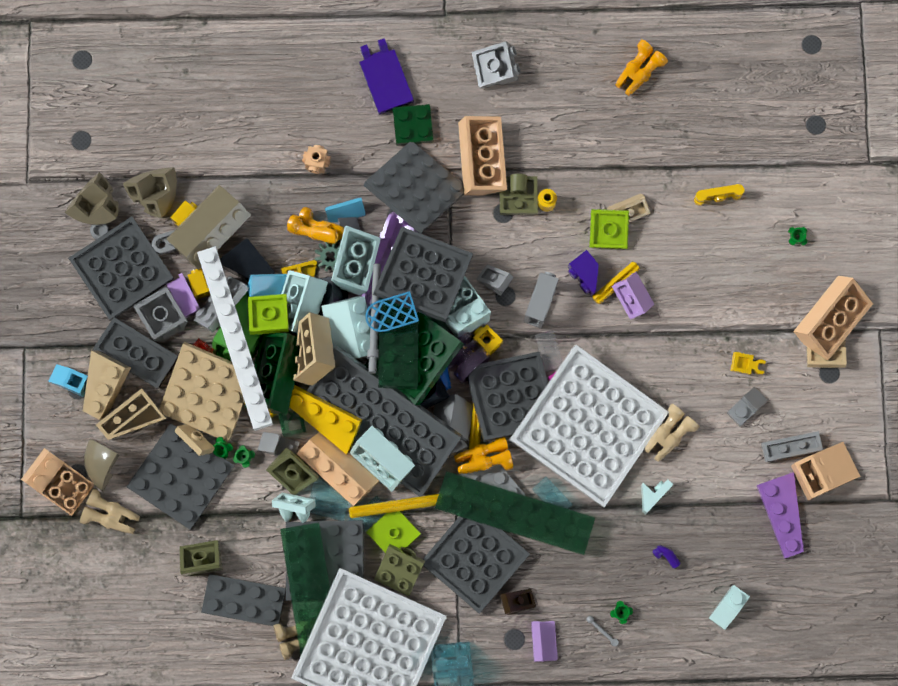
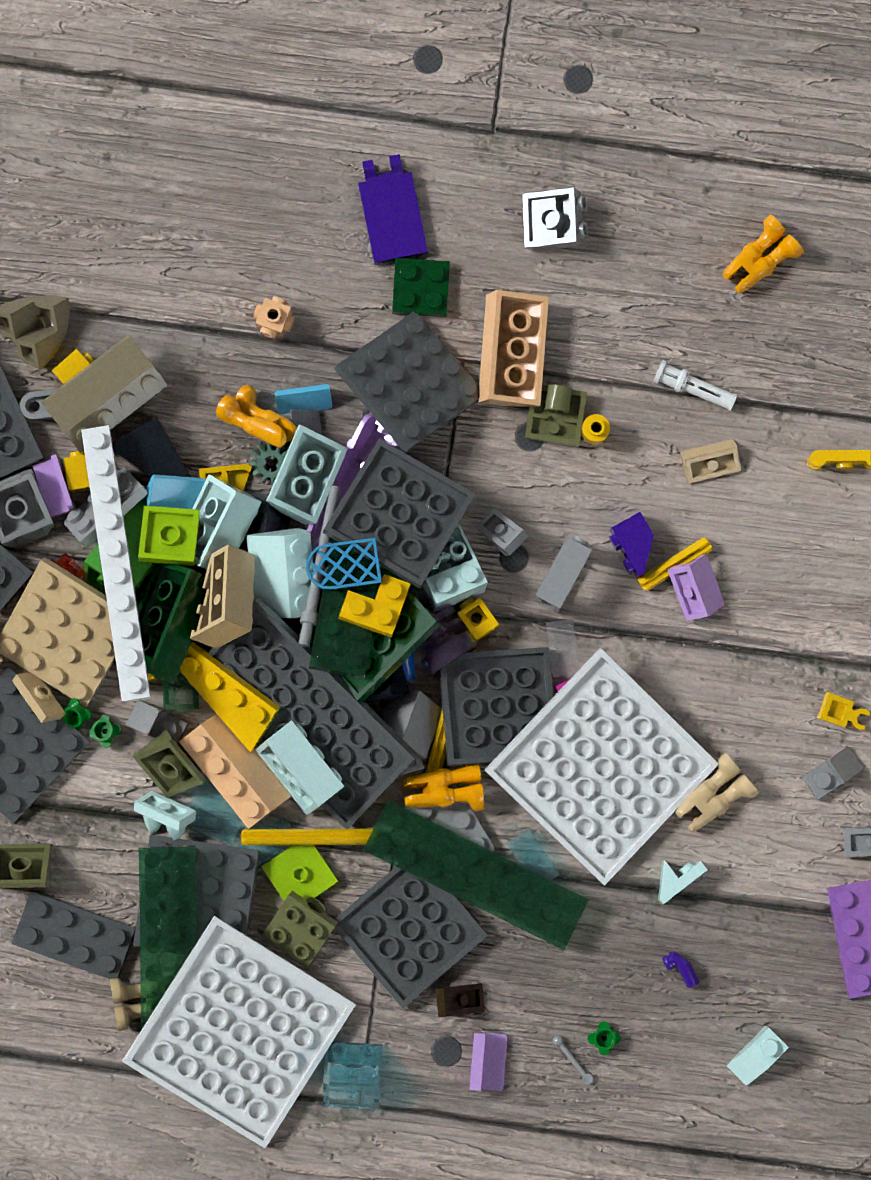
camera: 10 degrees right, 5 degrees up
(418, 343) = (377, 614): none -> yellow plate
(600, 159) = (679, 384): none -> white pin
(609, 228) = (678, 484): lime plate -> none

